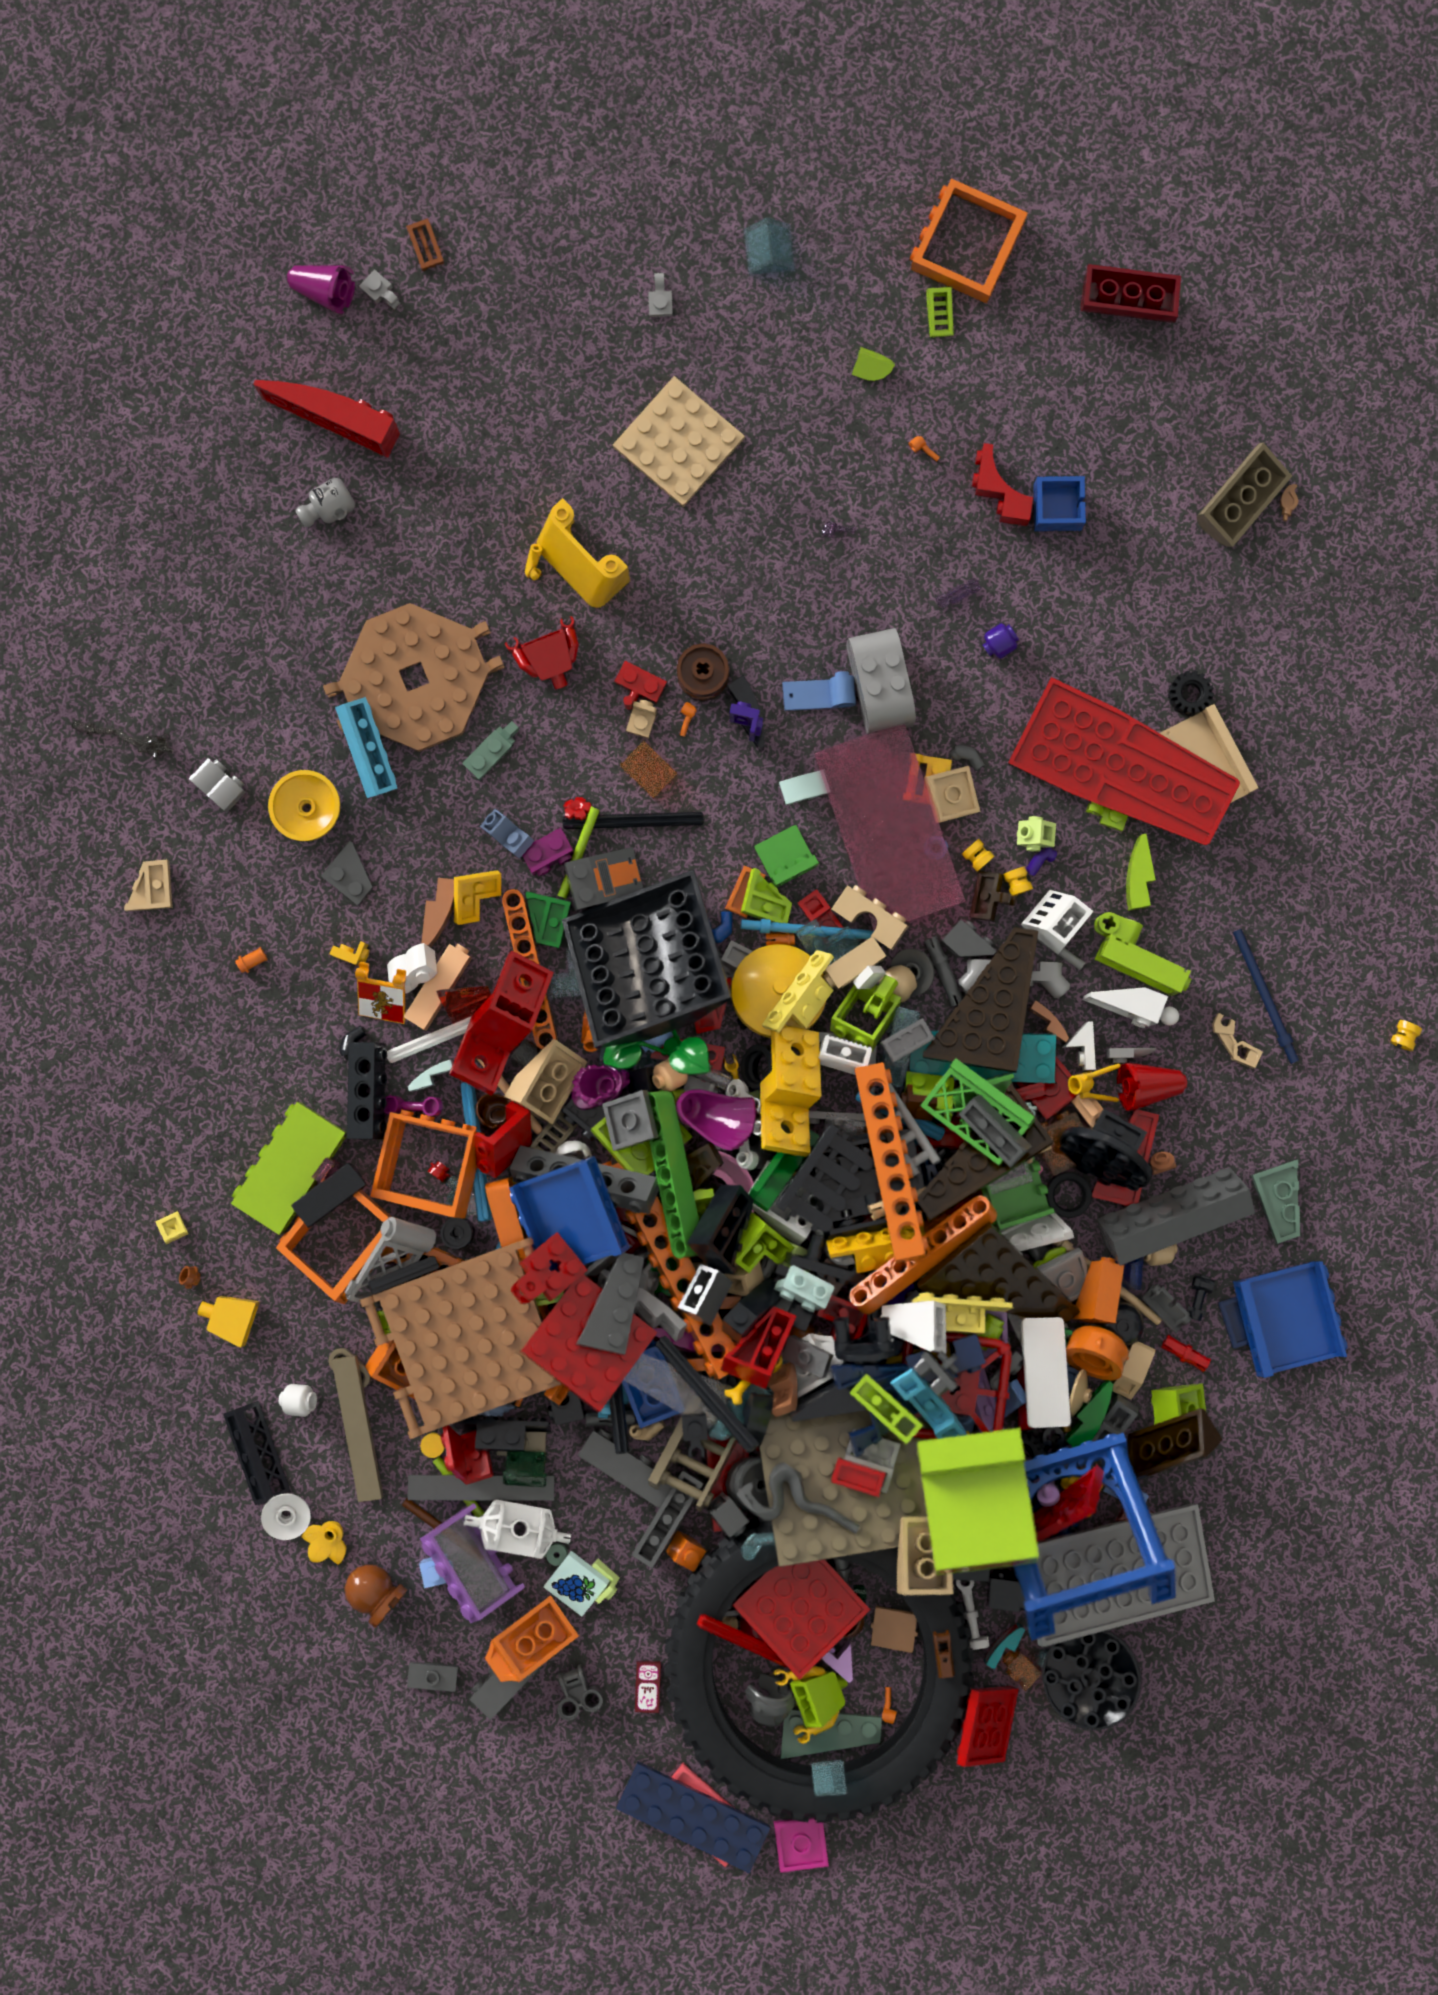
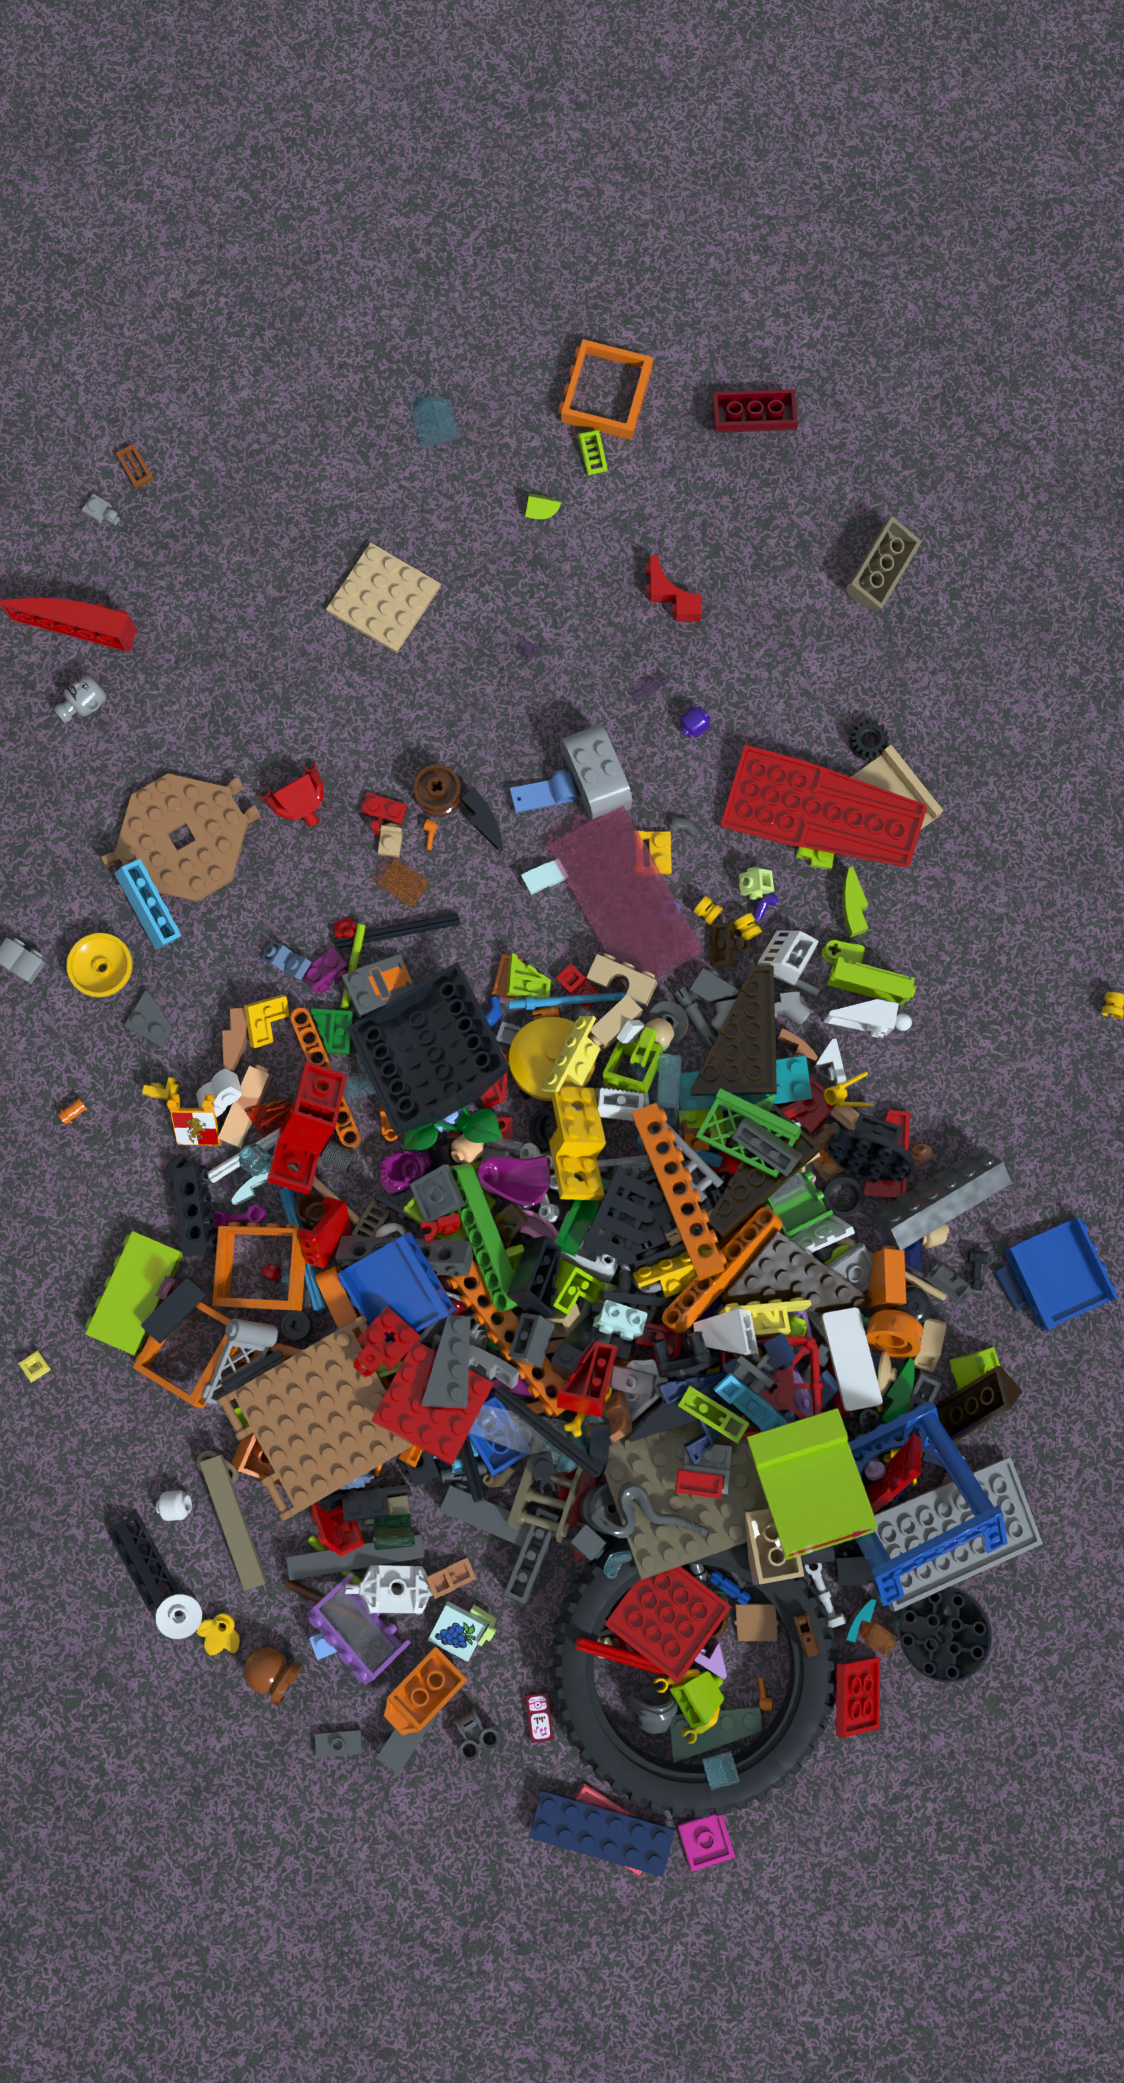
camera: 15 degrees left, 5 degrees down
(189, 1277) = (57, 1408): dark orange plate -> none
(230, 1318) = (100, 1440): yellow torso -> none
(324, 284) = (50, 512): magenta cone -> none
(431, 1445) = (304, 1526): yellow tile -> none
(440, 1047) = (255, 1159): none -> clear light blue head
(491, 750) = (260, 890): sand green hinge -> none
(531, 569) = (271, 720): yellow arm -> none
(546, 1081) = (356, 1173): tan slope -> none
(556, 1547) = (429, 1607): sand green piece -> none
(578, 1526) = (450, 1578): none -> nougat slope
(590, 579) = (325, 725): yellow windscreen -> none
(632, 1154) = (444, 1225): none -> red plate
(660, 300) = (347, 481): light grey plate -> none
(685, 1551) = (553, 1582): orange brick -> none
(732, 1068) = (522, 1135): yellow hand -> none
(745, 715) = (482, 820): dark purple bracket -> none
(786, 856) = (538, 939): bright green bracket -> none
(815, 939) = (575, 1006): clear light blue tile -> none
(871, 1588) = (729, 1587): none -> blue axle
(907, 1040) = (674, 1081): flat silver plate -> none
(919, 443) = (594, 565): orange hand -> none
(952, 794) = (676, 860): tan tile -> none
(1057, 503) = (723, 598): blue piece -> none
(1121, 1055) = (868, 1063): light grey plate -> none
(1148, 1084) = (895, 1086): red cone -> none
(1186, 1353) = (973, 1321): red pin -> none
(1226, 1034) = (959, 1036): tan piece -> none
(1279, 1199) = (1030, 1167): sand green wing -> none
(1285, 1039) = (1007, 1026): dark blue bar -> none
(1288, 501) = (922, 564): medium nougat piece -> none

